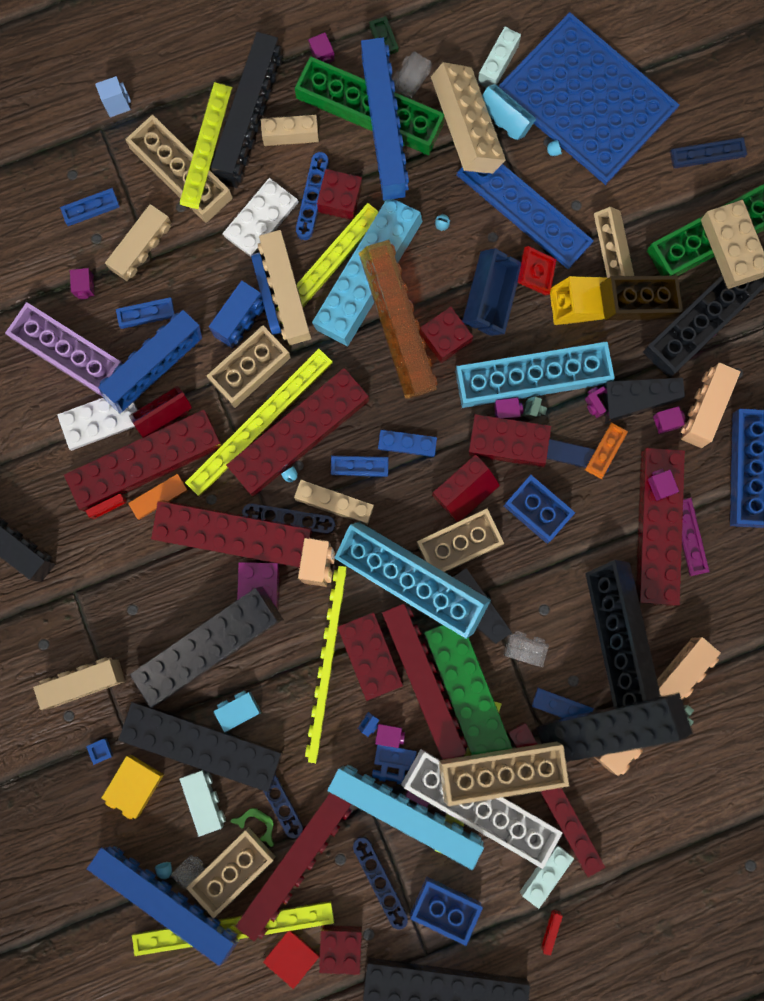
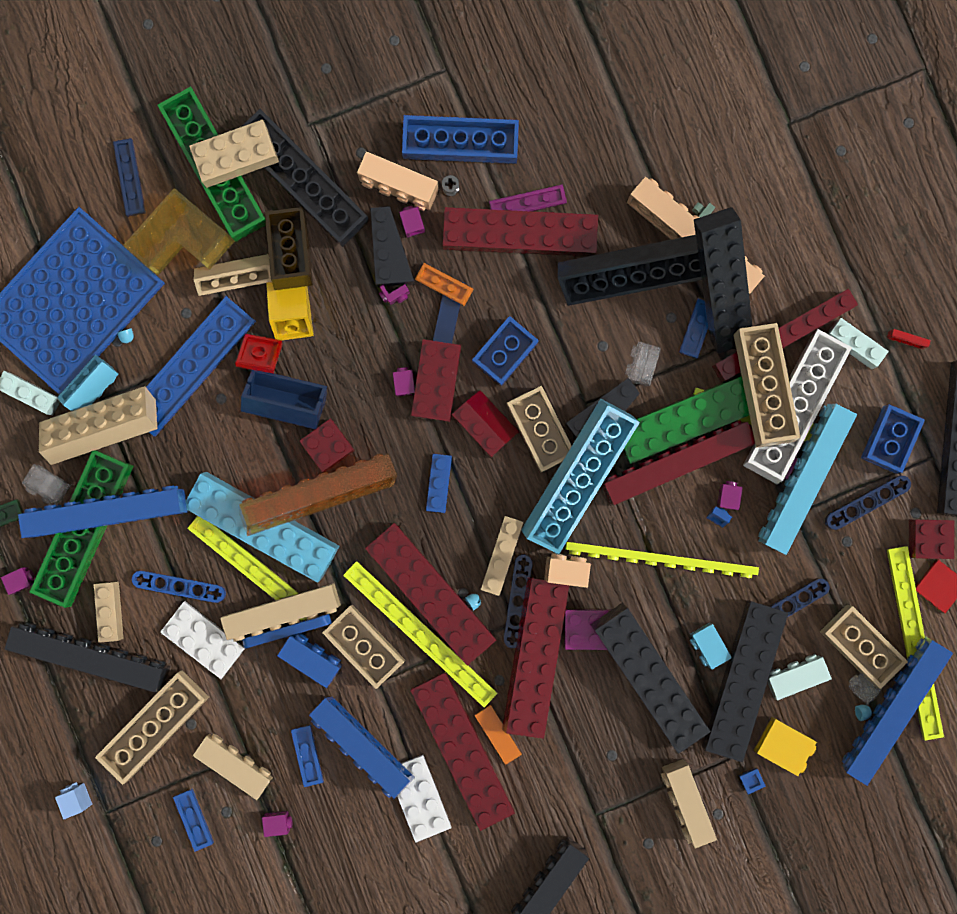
camera: 95 degrees left, 5 degrees up
(62, 347) = (348, 838): lavender brick -> none
(106, 506) = (502, 772): red tile -> none
(160, 412) = (412, 735): dark red slope -> none
(205, 146) = (128, 699): neon yellow plate -> none
(254, 812) = (809, 619): bright green helmet -> none
(292, 867) = (856, 586): dark red brick -> none
(339, 194) = (178, 557): dark red brick -> none
(359, 466) = (463, 531): blue tile -> none
(370, 656) = (654, 516): dark red brick -> none
(395, 758) = (751, 485): blue plate -> none
(441, 225) = (209, 453): medium azure hinge -> none
(533, 408) = (401, 357): sand green tile -> none
(534, 374) = (368, 356): medium azure brick -> none
(660, 191) = (177, 225): none -> clear yellow piece
(663, 484) = (481, 229): magenta brick -> none
(708, 453) = (445, 182): none -> dark grey bush

